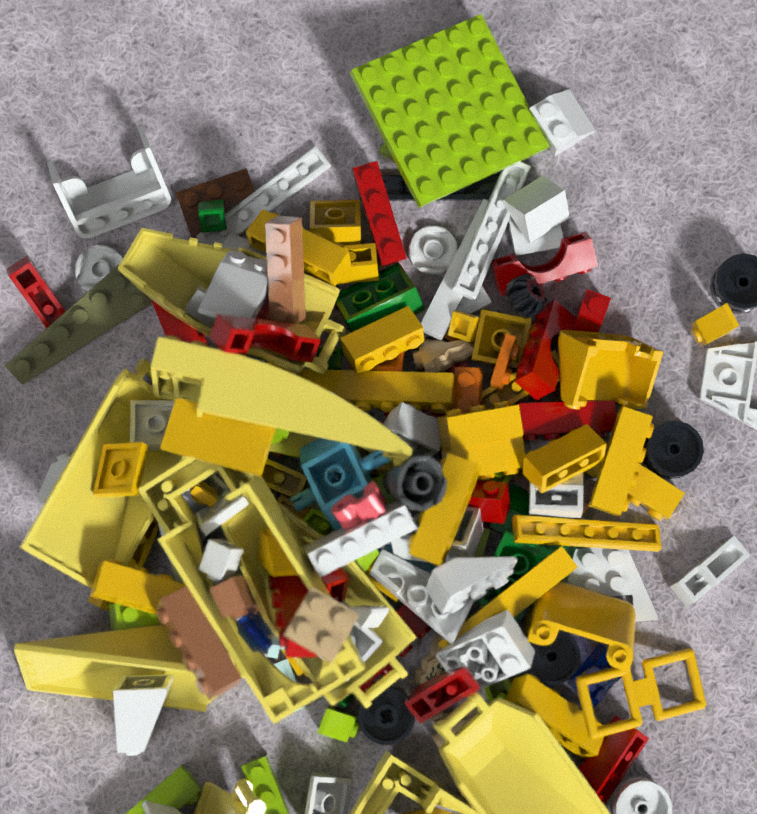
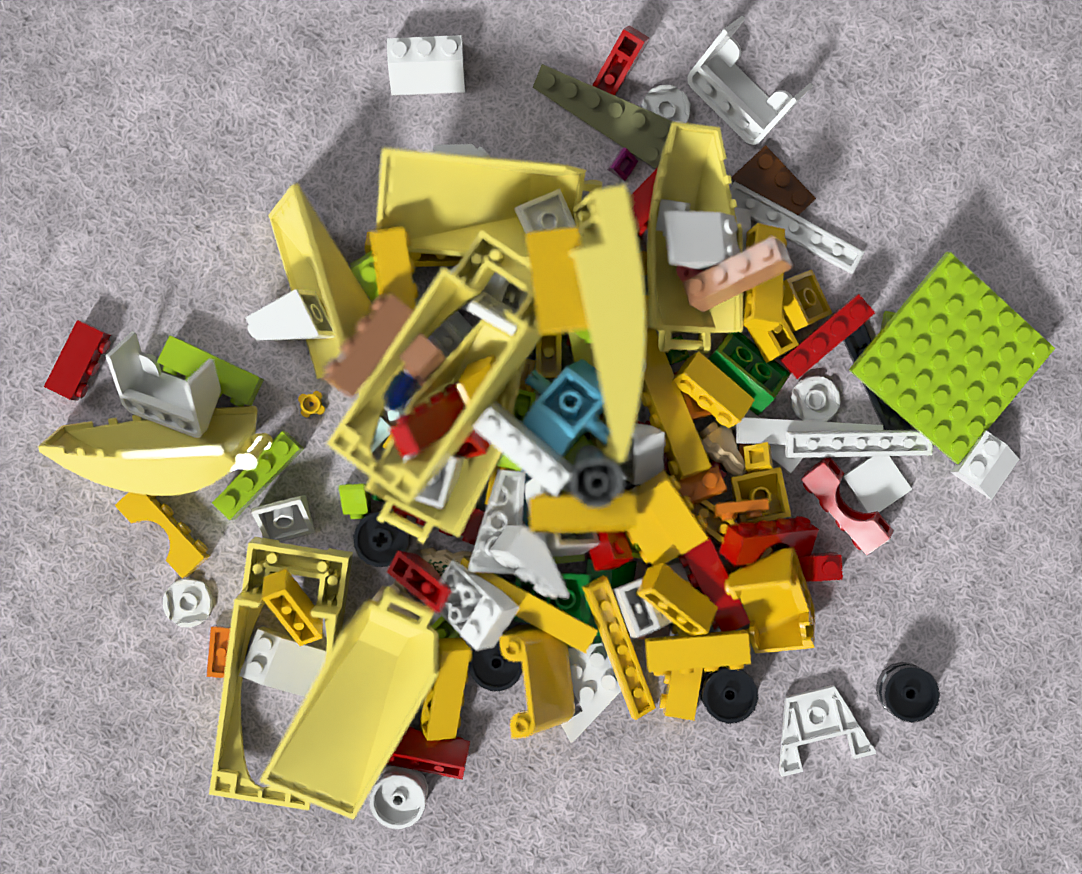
camera: 70 degrees right, 5 degrees up
(120, 469) = (492, 207): yellow plate -> none
(133, 331) = (623, 164): none -> magenta slope
(204, 494) = (504, 292): yellow plate -> none
(212, 216) = (758, 187): green slope -> none
(220, 560) = (450, 332): white brick -> none
(221, 732) = (317, 408): none -> yellow plate
(239, 334) = (660, 257): red arch -> none
(321, 624) = (430, 447): tan plate -> none
(352, 511) = (545, 431): coral leg -> none
(370, 615) = (459, 486): white slope -> none
(526, 296) = (810, 502): black gear -> none
(538, 208) = (896, 478): white slope -> none
(595, 662) = (495, 709): clear blue plate -> none
(641, 693) = (498, 756): yellow bar -> none
(710, 571) = (634, 771): white slope -> none
(714, 325) = (858, 683): yellow slope -> none

